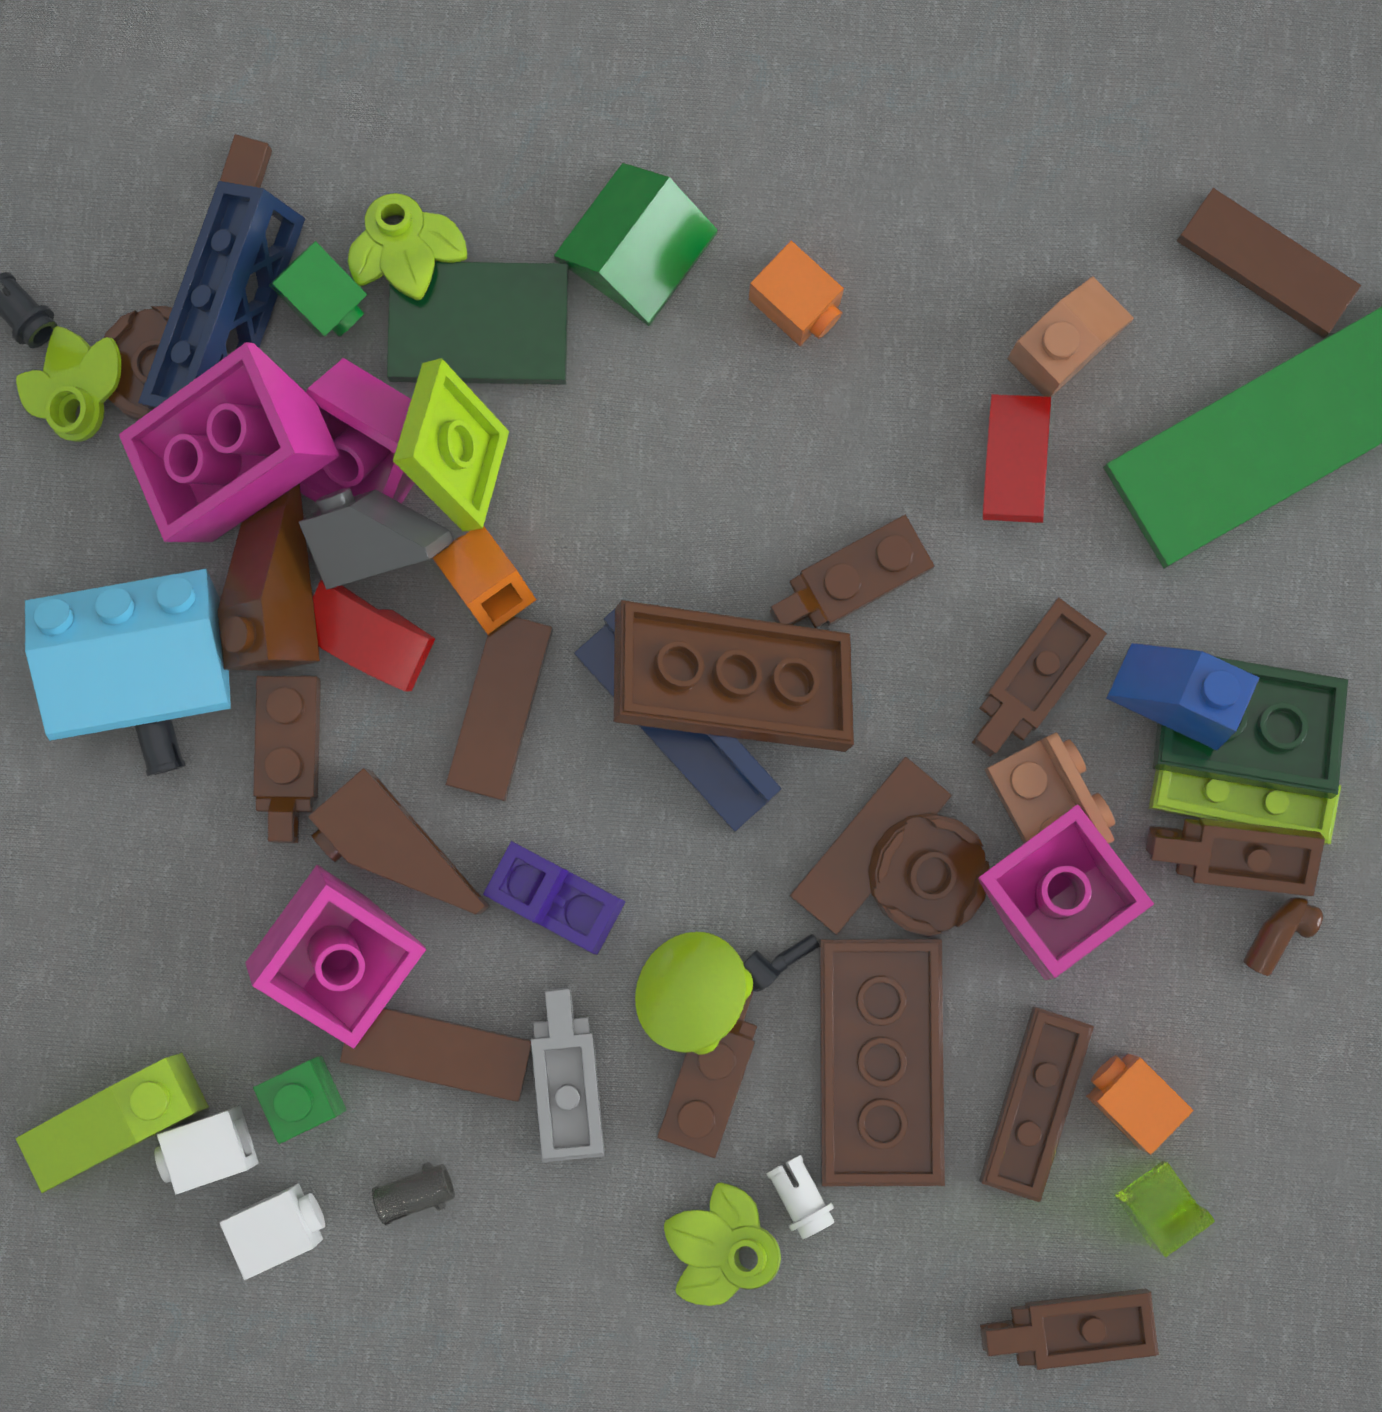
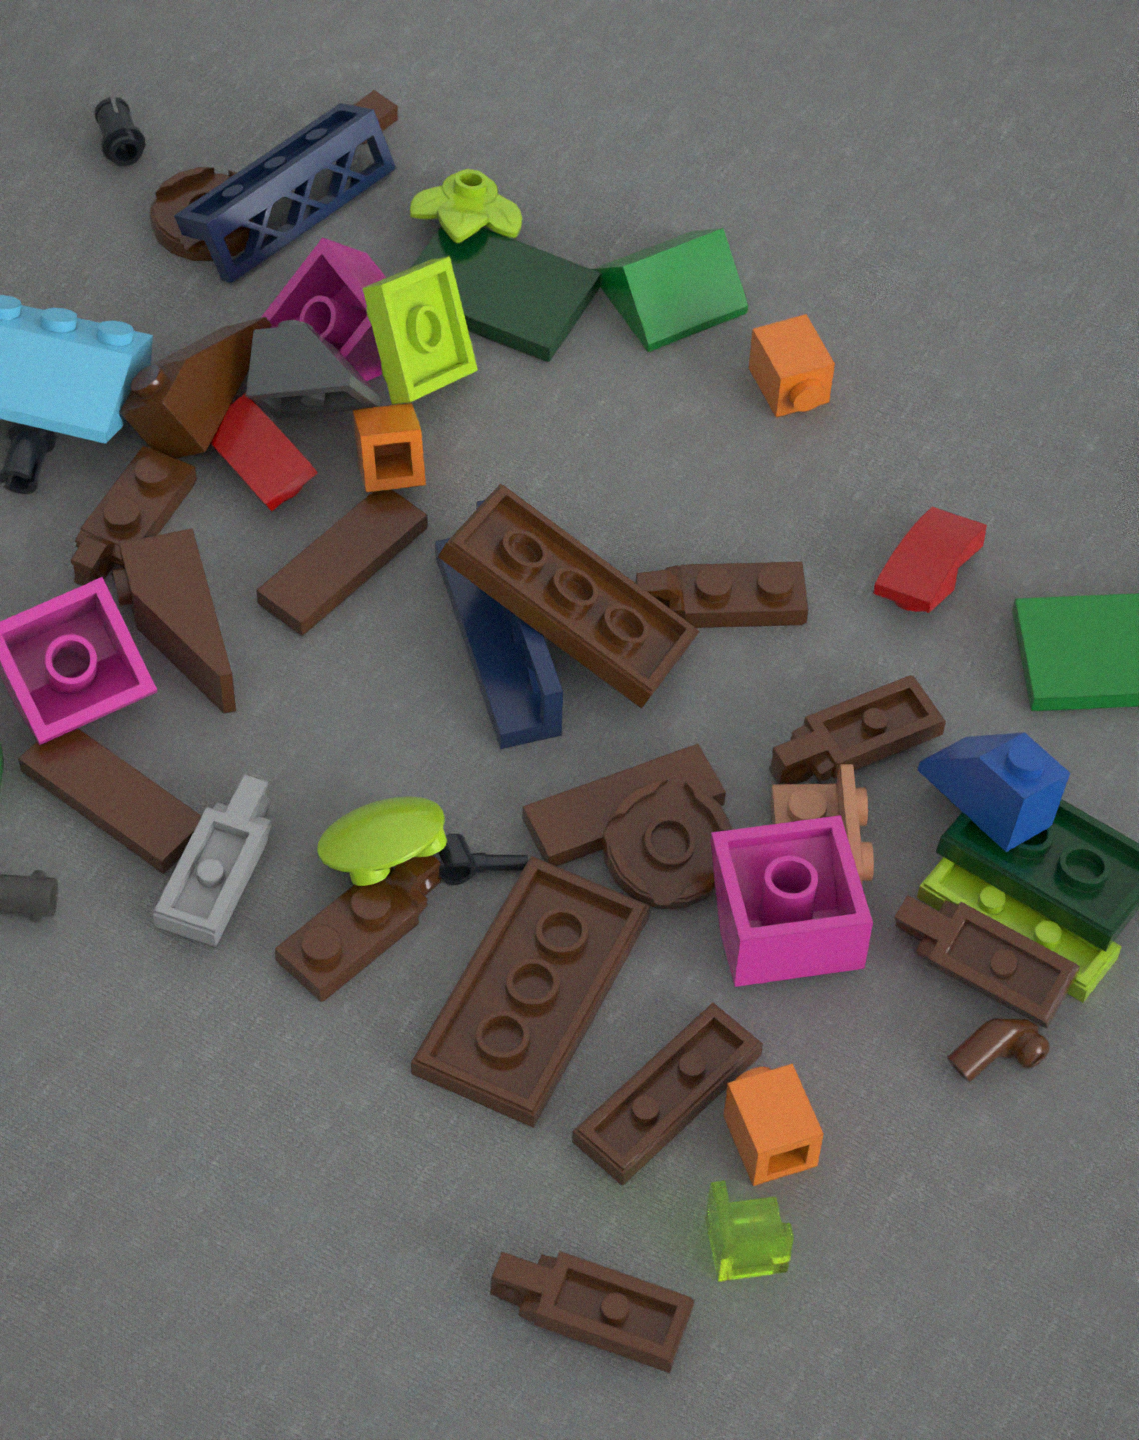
camera: 25 degrees right, 30 degrees down
(70, 378) = (121, 202): lime plate -> none
(226, 446) = (228, 257): dark pink slope -> none
(320, 292) = (375, 203): green brick -> none
(554, 898) = (298, 722): dark purple slope -> none
(712, 1247) = (280, 1075): lime plate -> none
(803, 1201) = (384, 1074): white pin -> none
(1069, 337) = (1024, 490): nougat slope -> none

